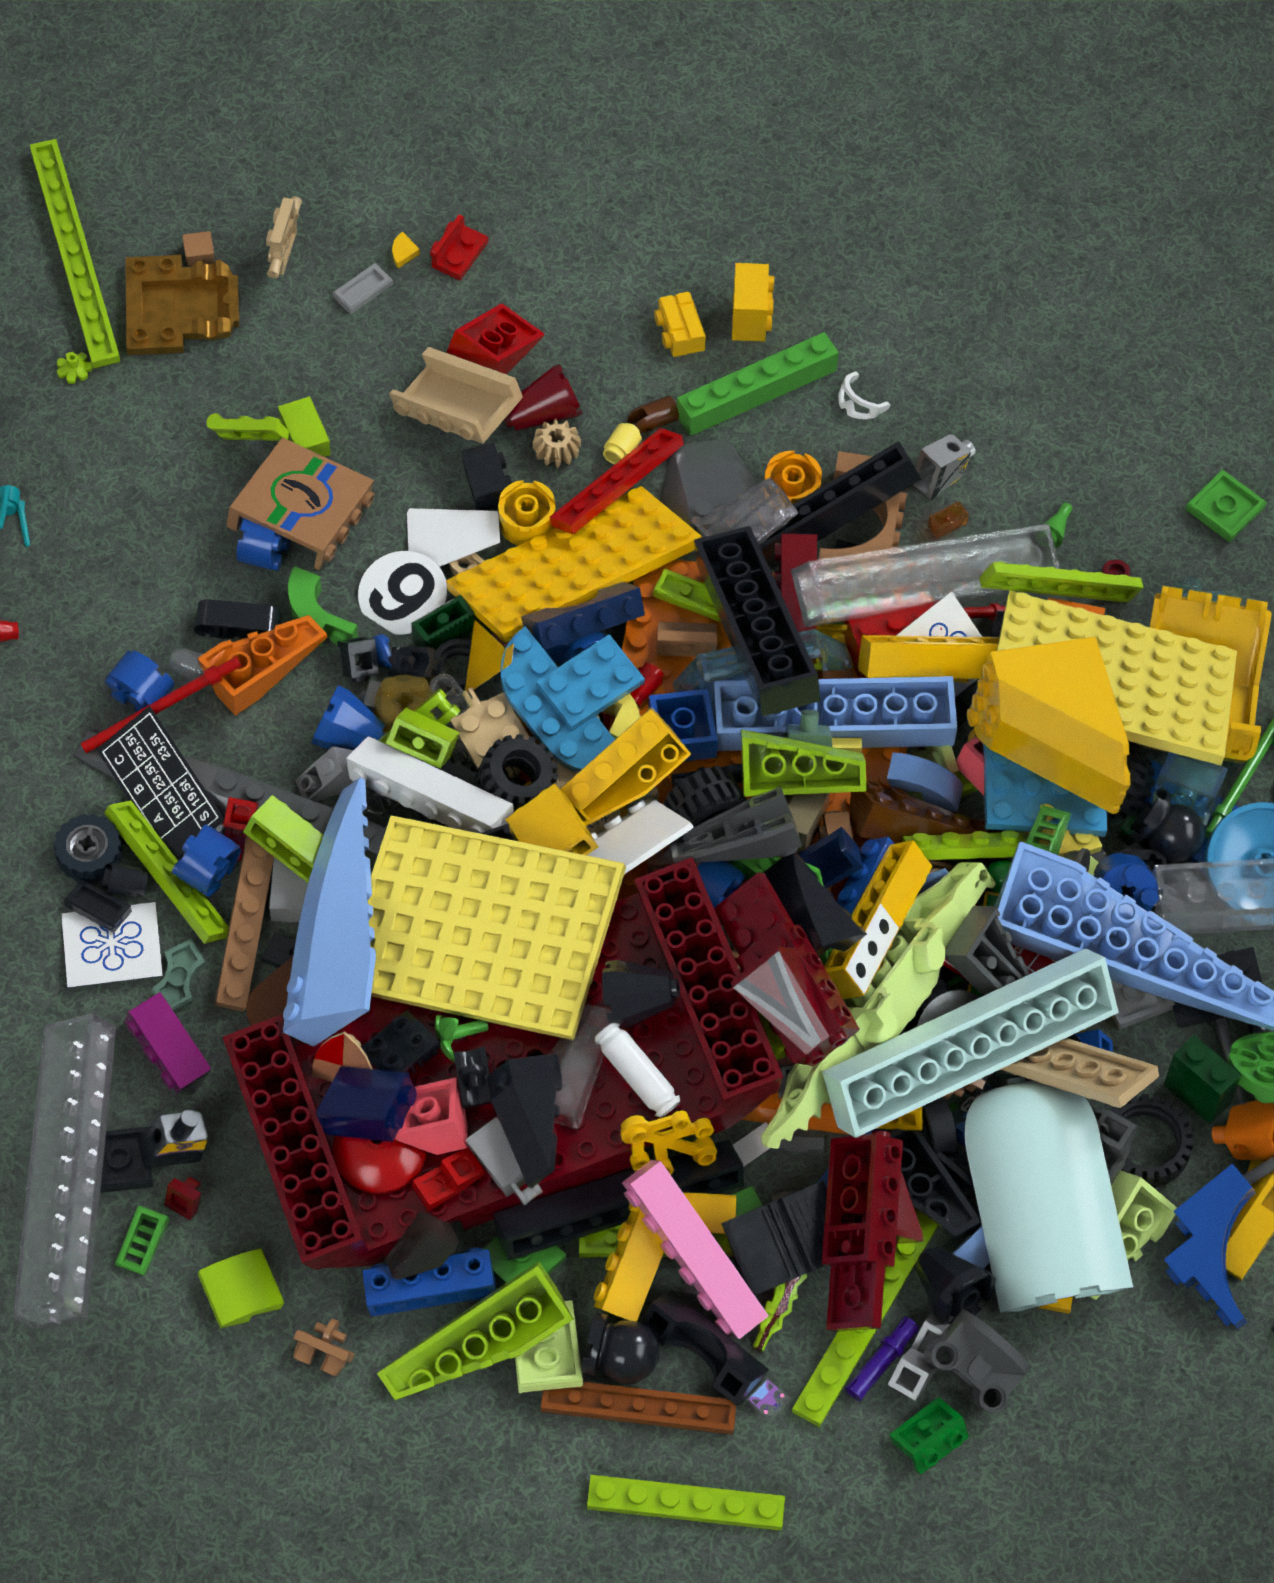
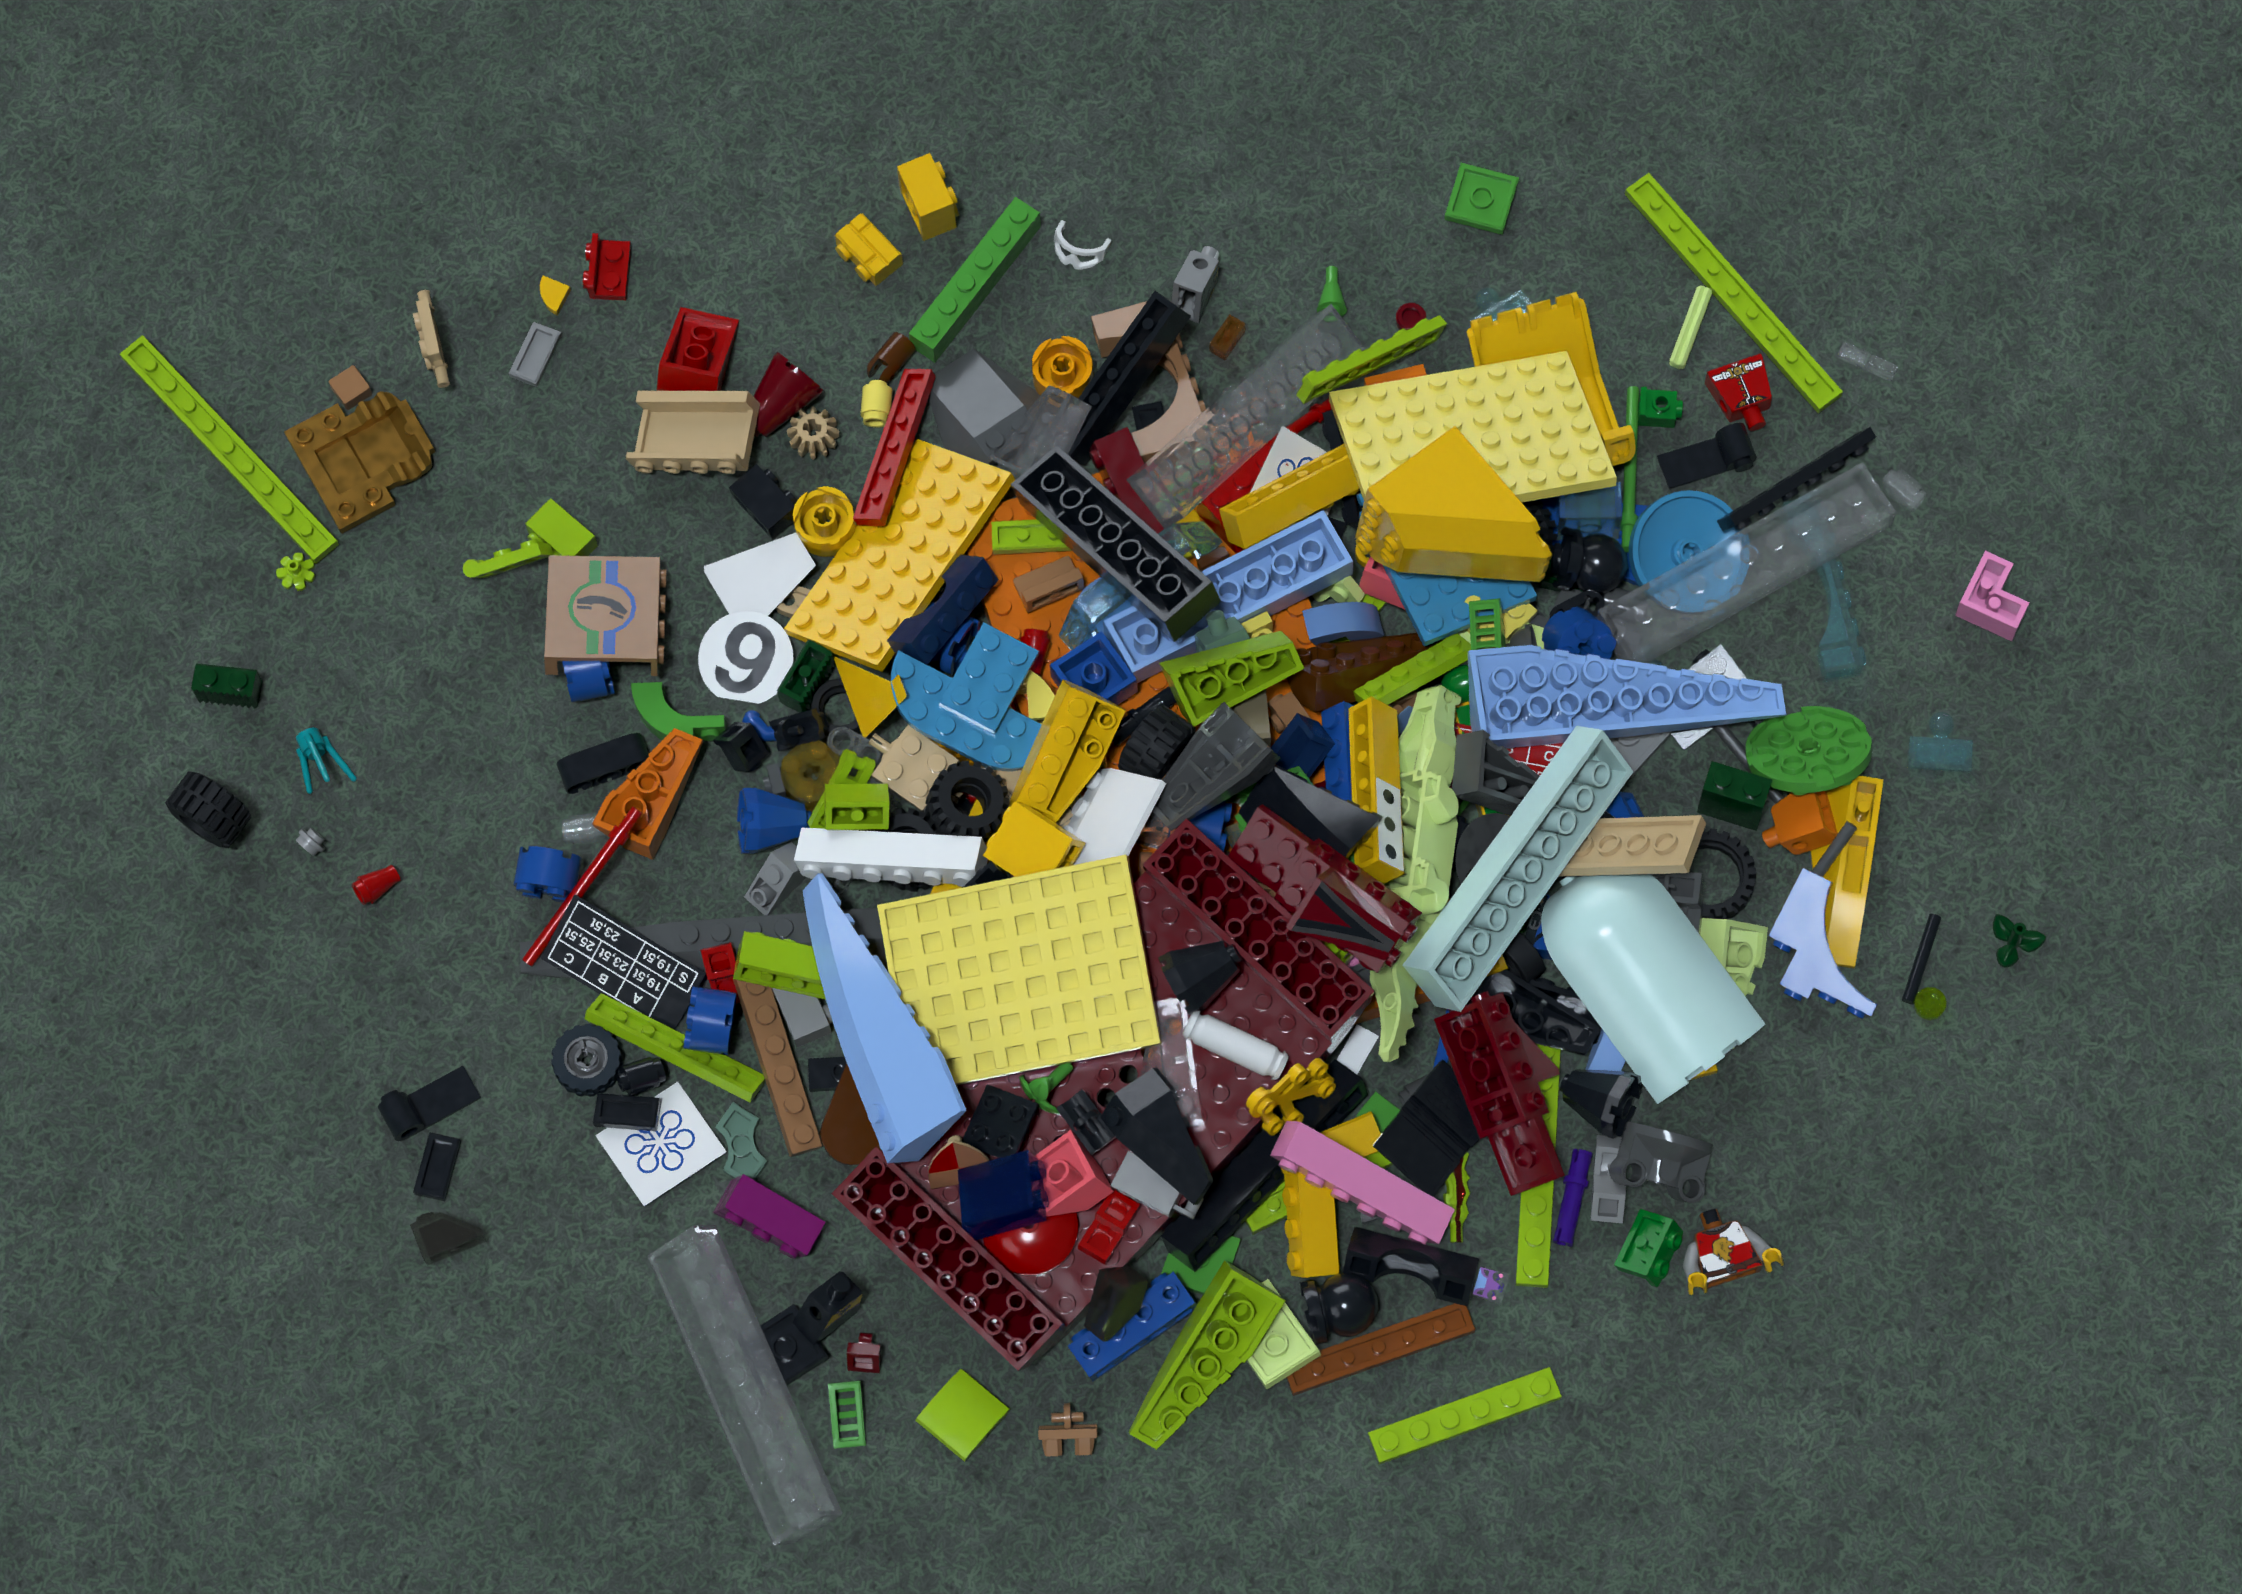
camera: 20 degrees left, 10 degrees up
(995, 1471) = (1725, 1253): none -> torso

